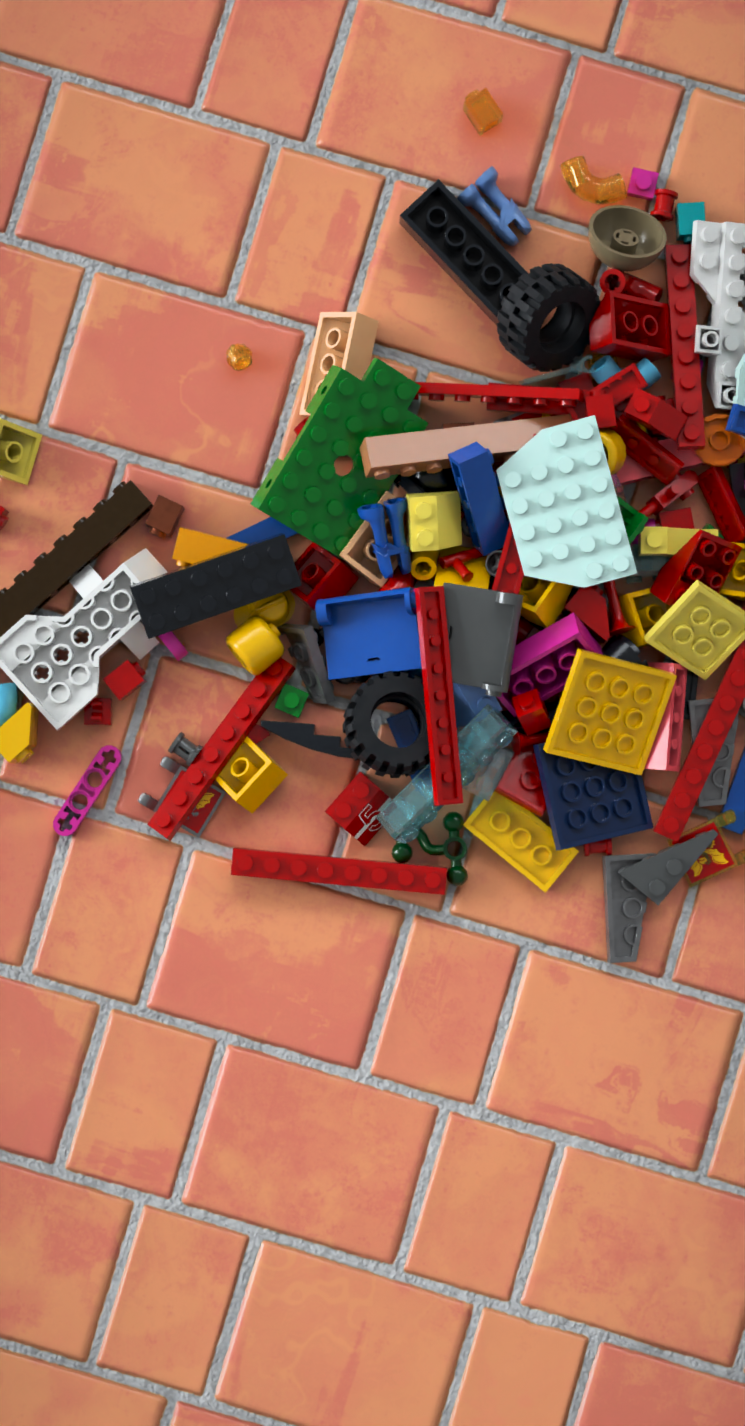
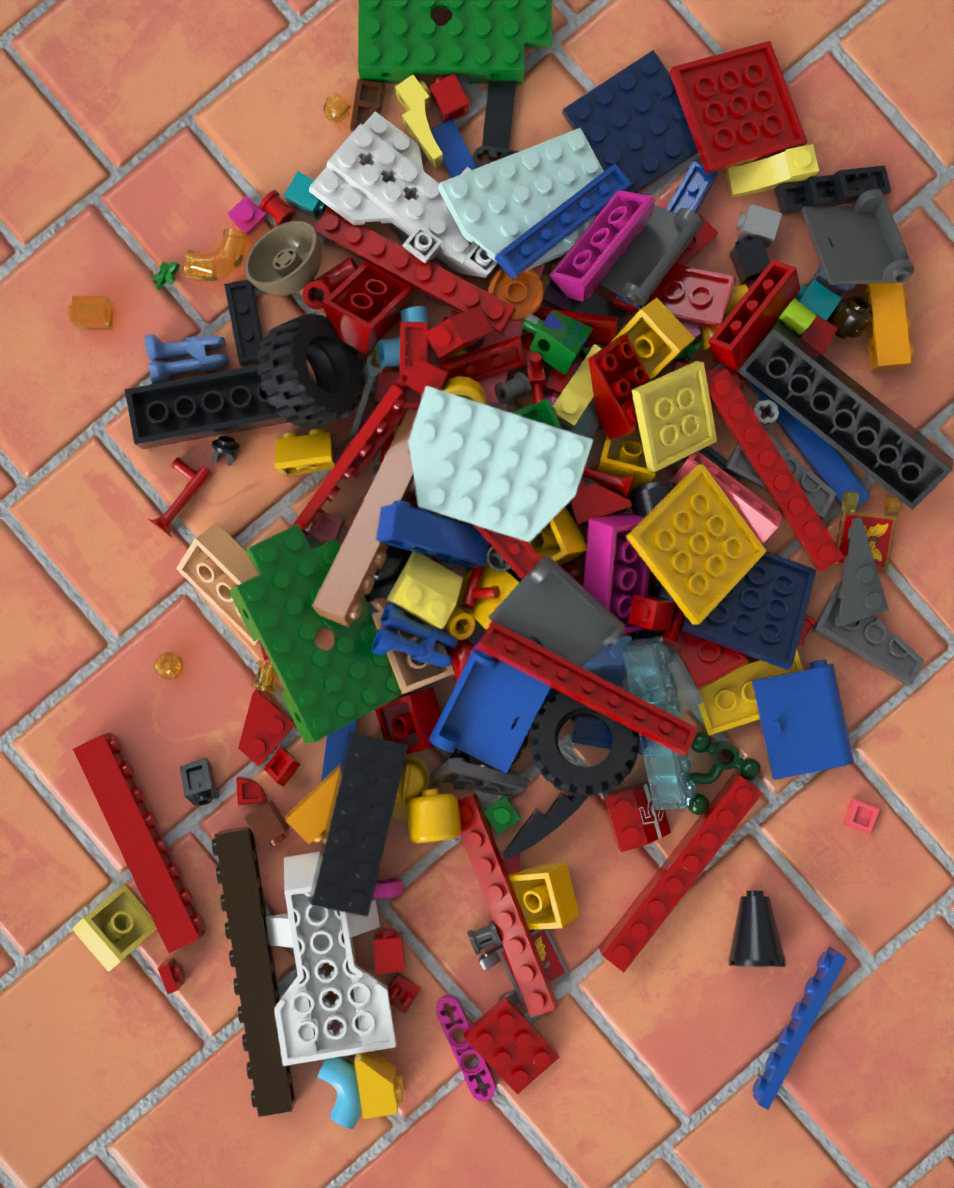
camera: 55 degrees left, 0 degrees up
(85, 424) = (140, 842): none -> red brick
(113, 824) = (511, 1045): none -> red plate
(161, 441) = (198, 782): none -> black bracket
(179, 486) = (249, 792): none -> red tile
(217, 499) = (282, 766): none -> red plate
(237, 465) = (263, 728): none -> red wing
(280, 440) = (265, 677): none -> clear yellow bush
(286, 1044) = (793, 1036): none -> blue plate
(327, 964) = (756, 934): none -> black cone
(402, 282) = (196, 479): none -> red piece
(431, 411) = (327, 527): none -> coral tile
(445, 289) = (227, 446): none -> black plate
(477, 992) = (861, 815): none -> coral tile
(480, 355) = (305, 453): none -> yellow slope
(524, 893) = (803, 721): none -> blue door
(552, 150) = (166, 274): none -> green plant
(556, 237) = (244, 320): none -> black tile
(639, 487) = (513, 388): none -> dark grey bush
(703, 497) = (557, 338): none -> green torso

